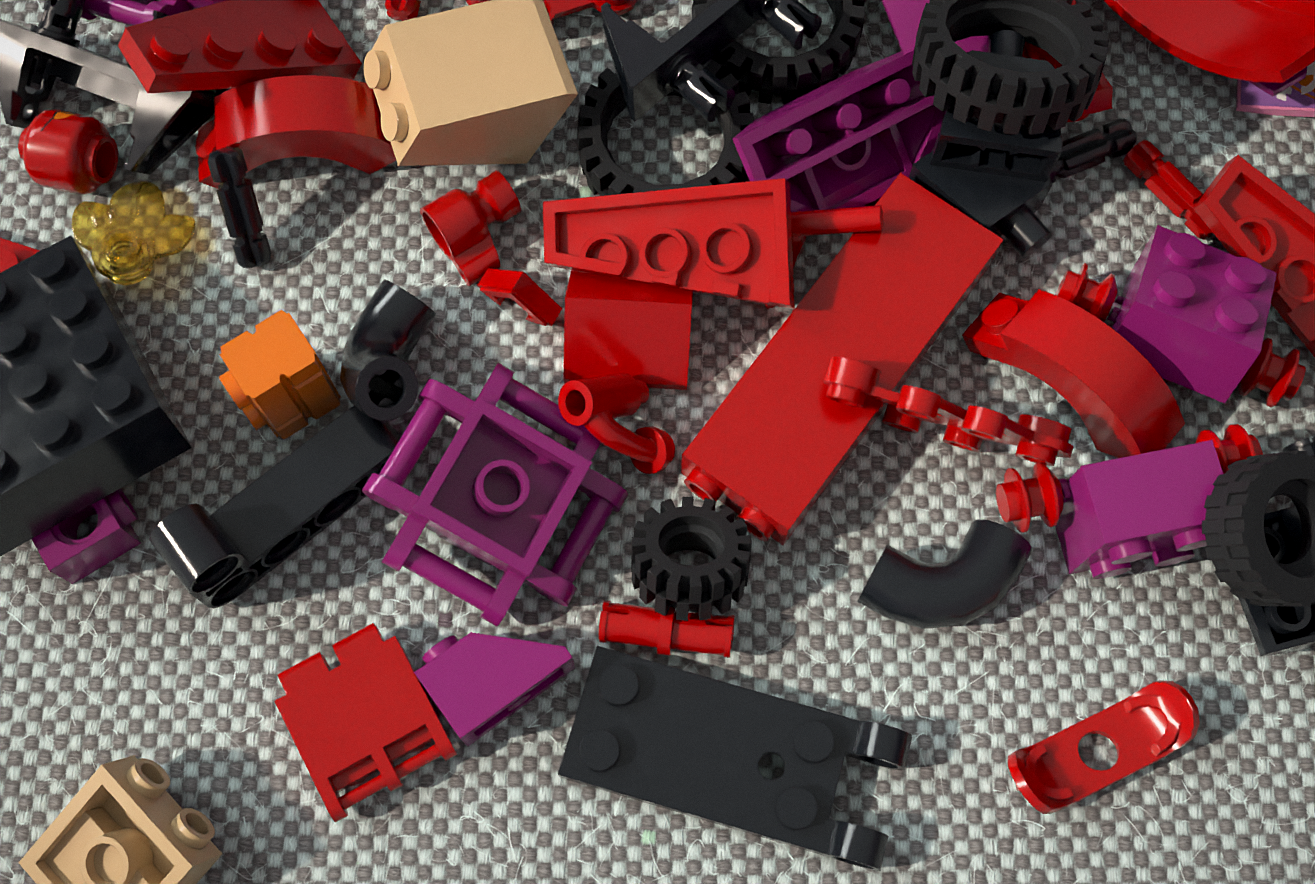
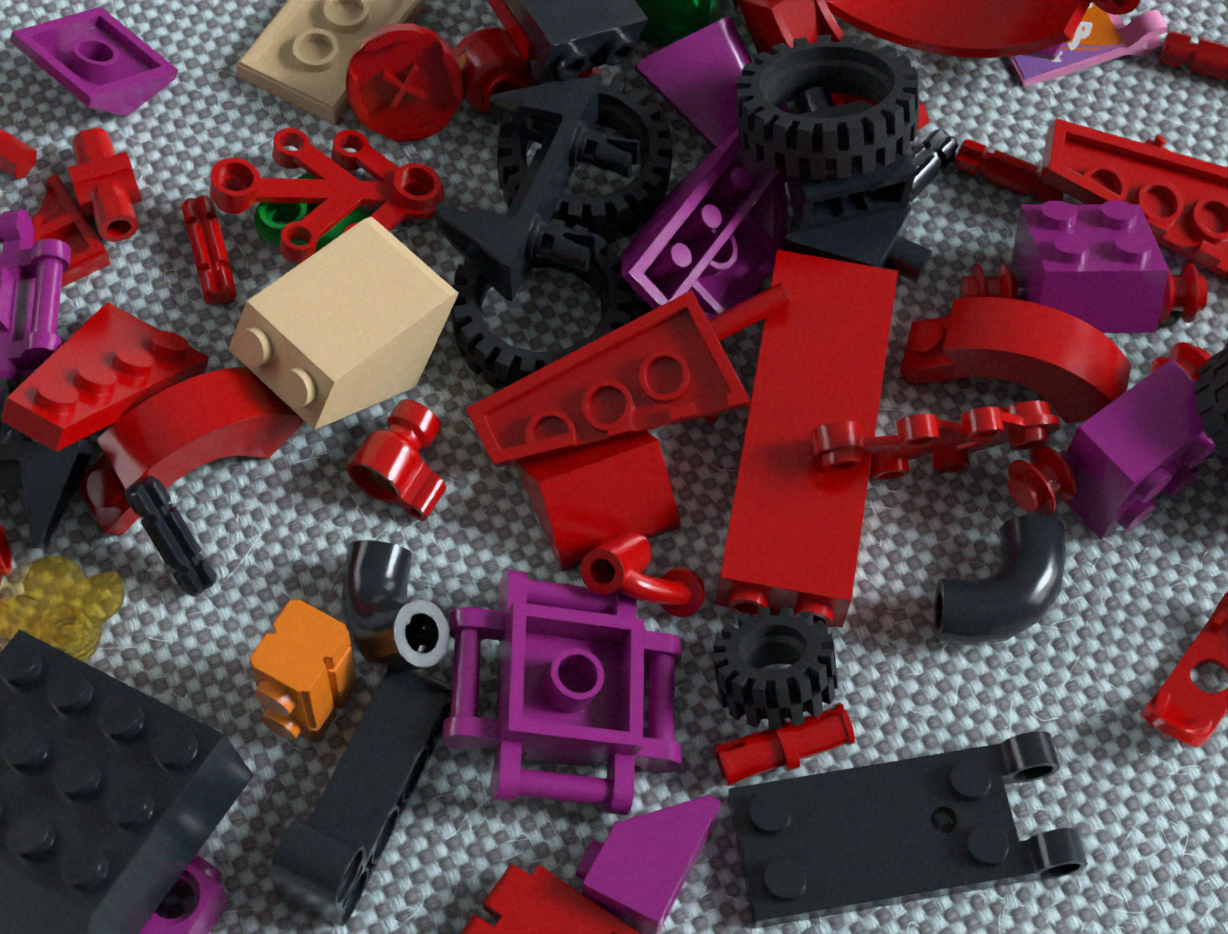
camera: 30 degrees left, 10 degrees down
(521, 289) = (481, 500): red tile -> none

